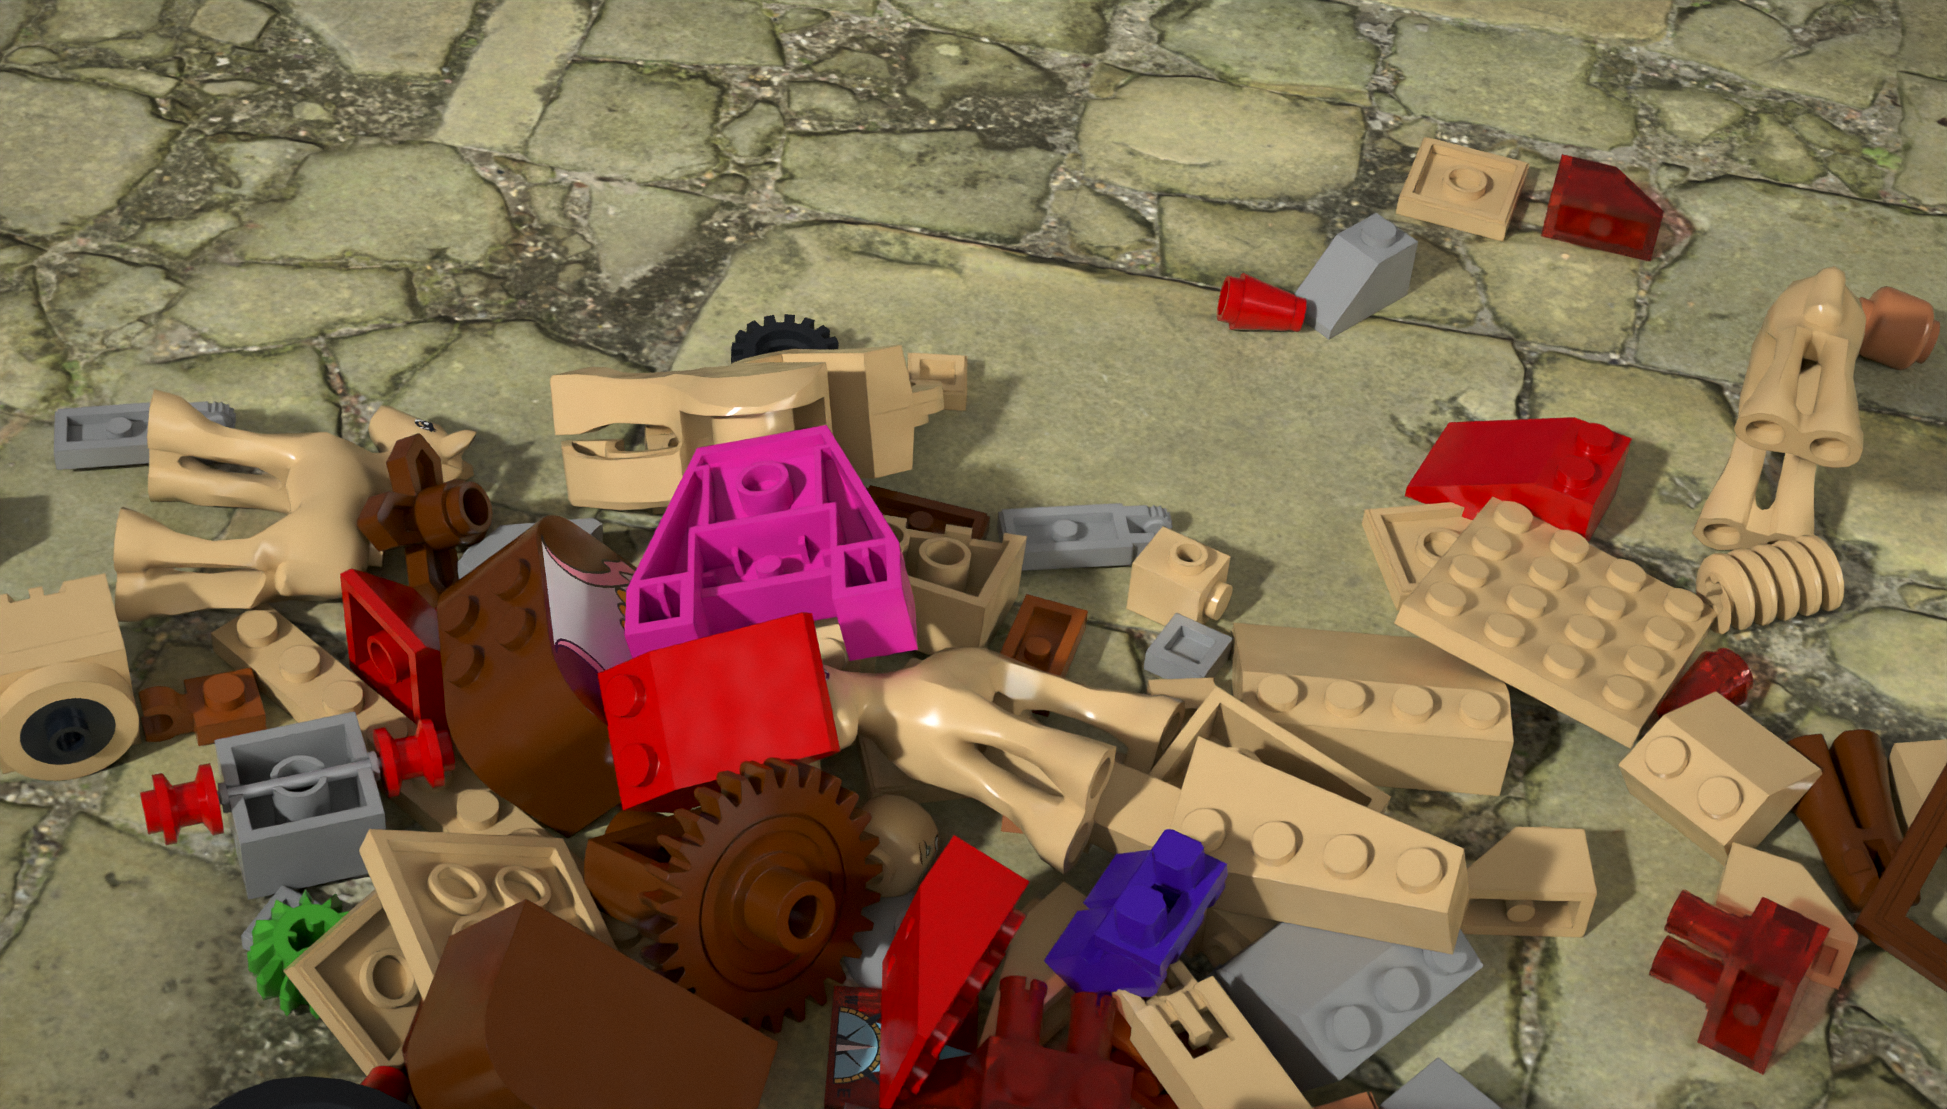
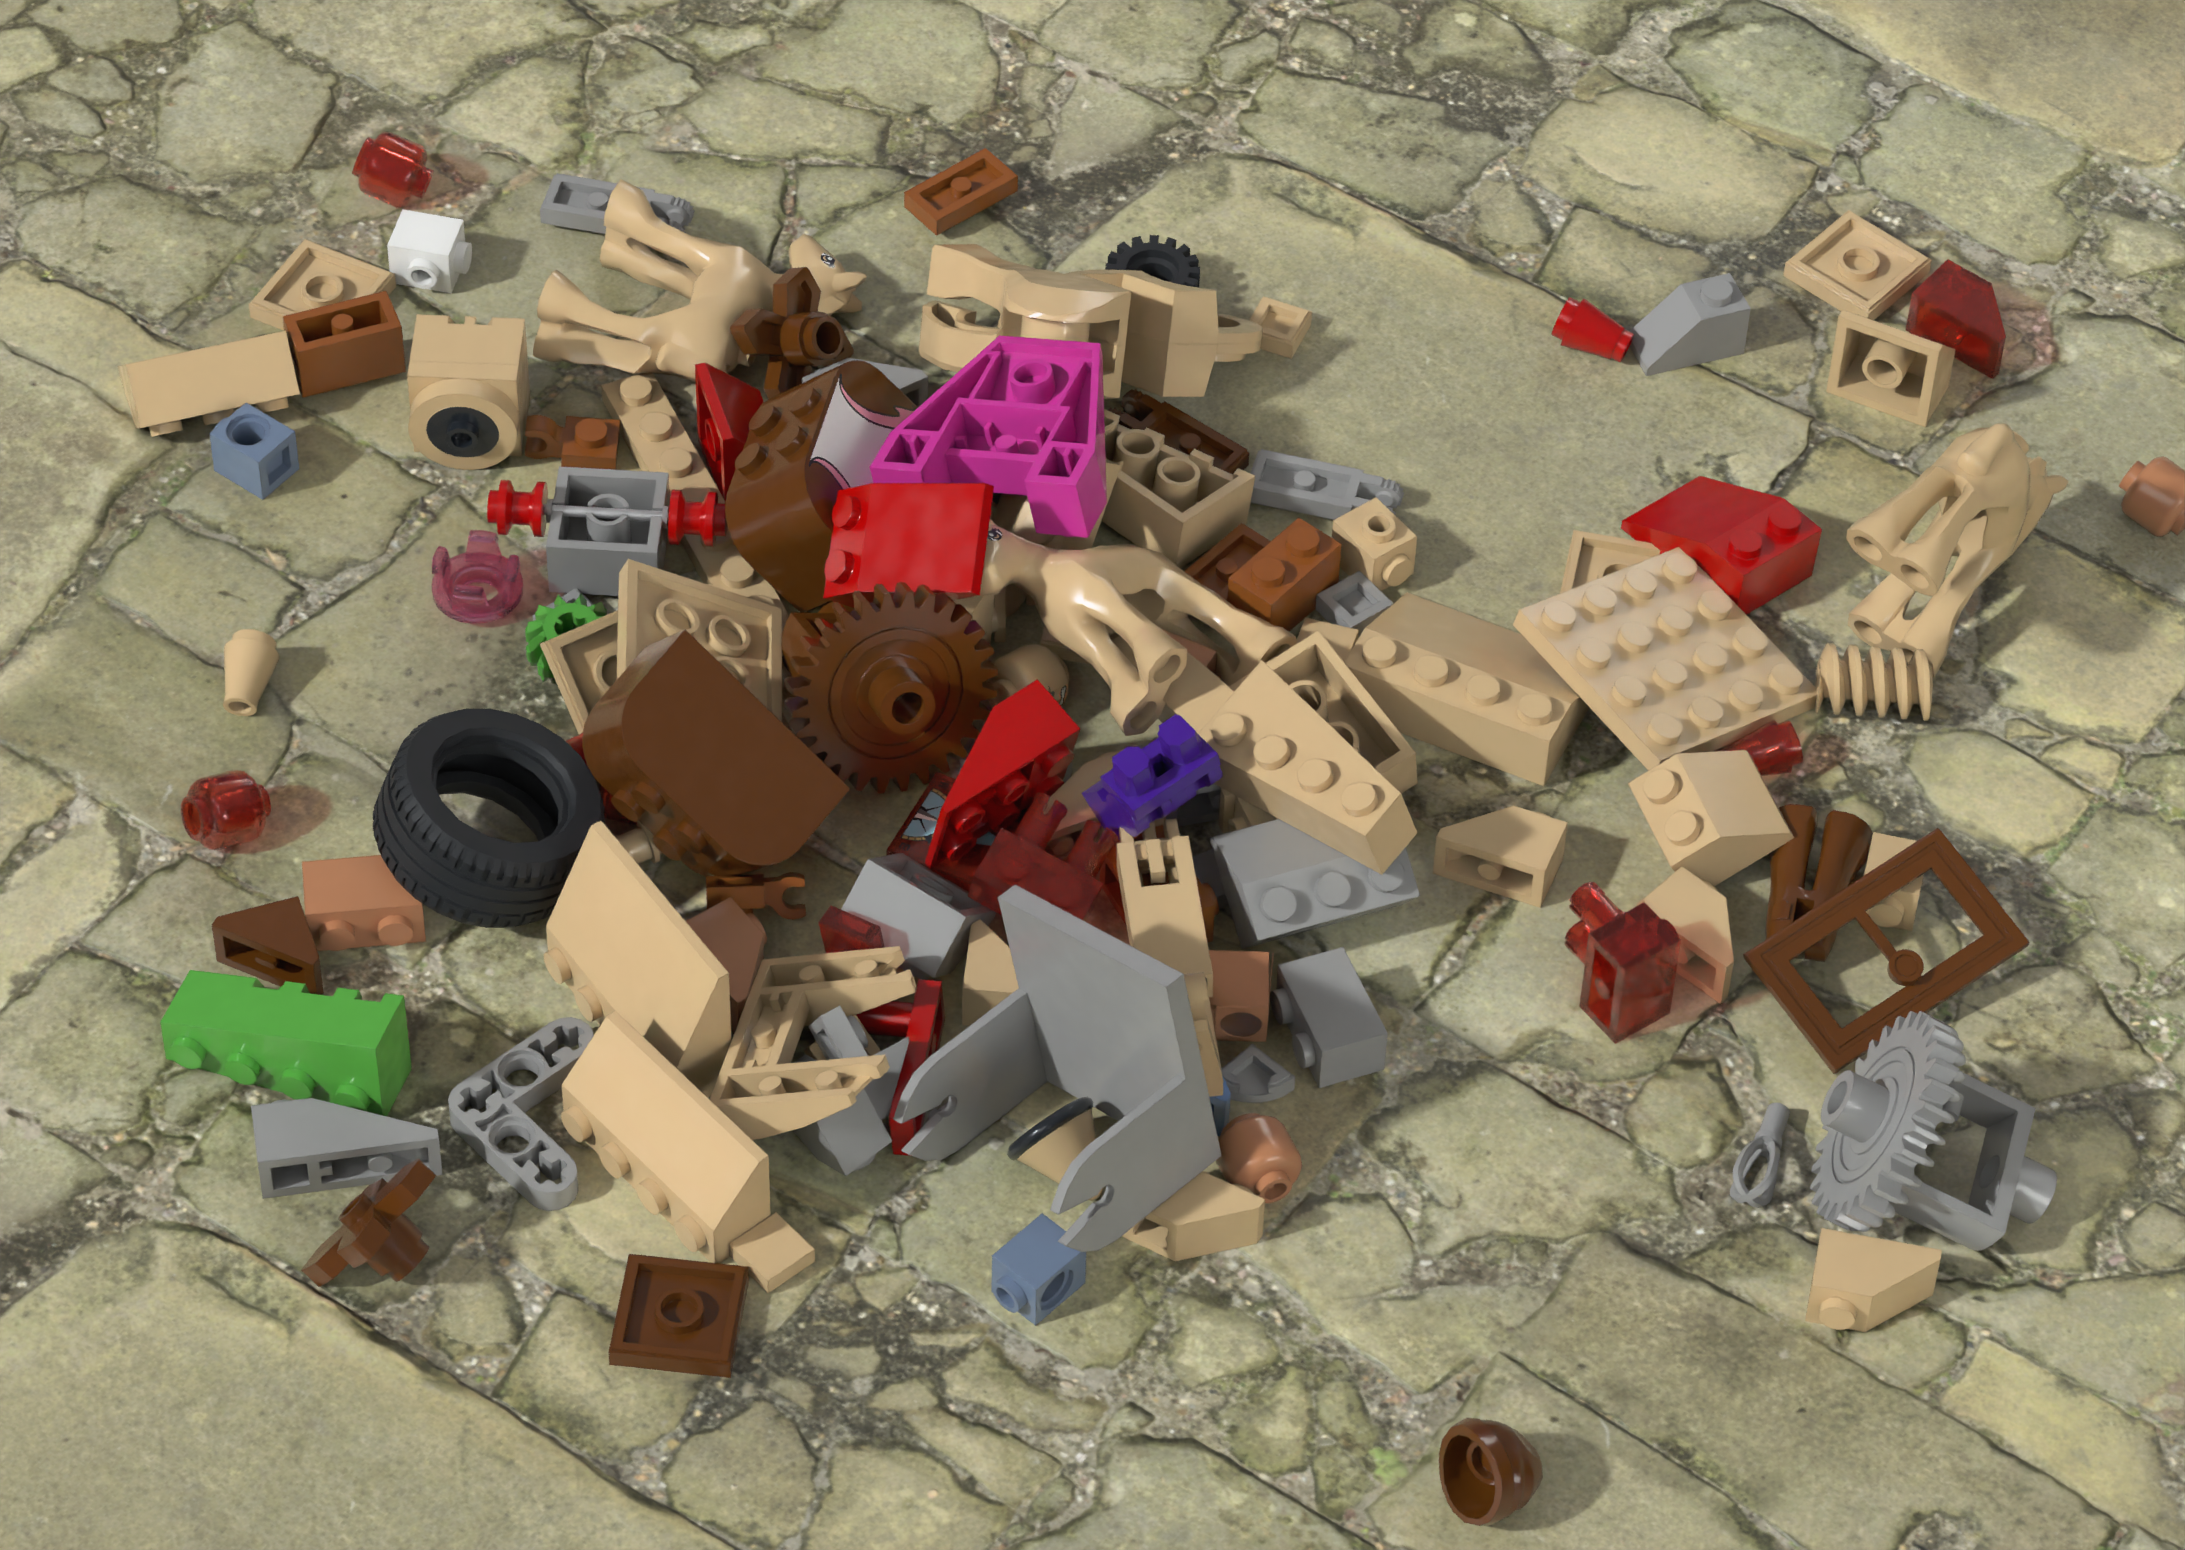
camera: 25 degrees right, 5 degrees up
(149, 888) = (479, 564): none -> clear pink piece
(528, 323) = (961, 191): none -> dark orange plate
(1113, 632) = (1287, 575): none -> dark orange brick
(1571, 267) = (1888, 368): none -> tan slope

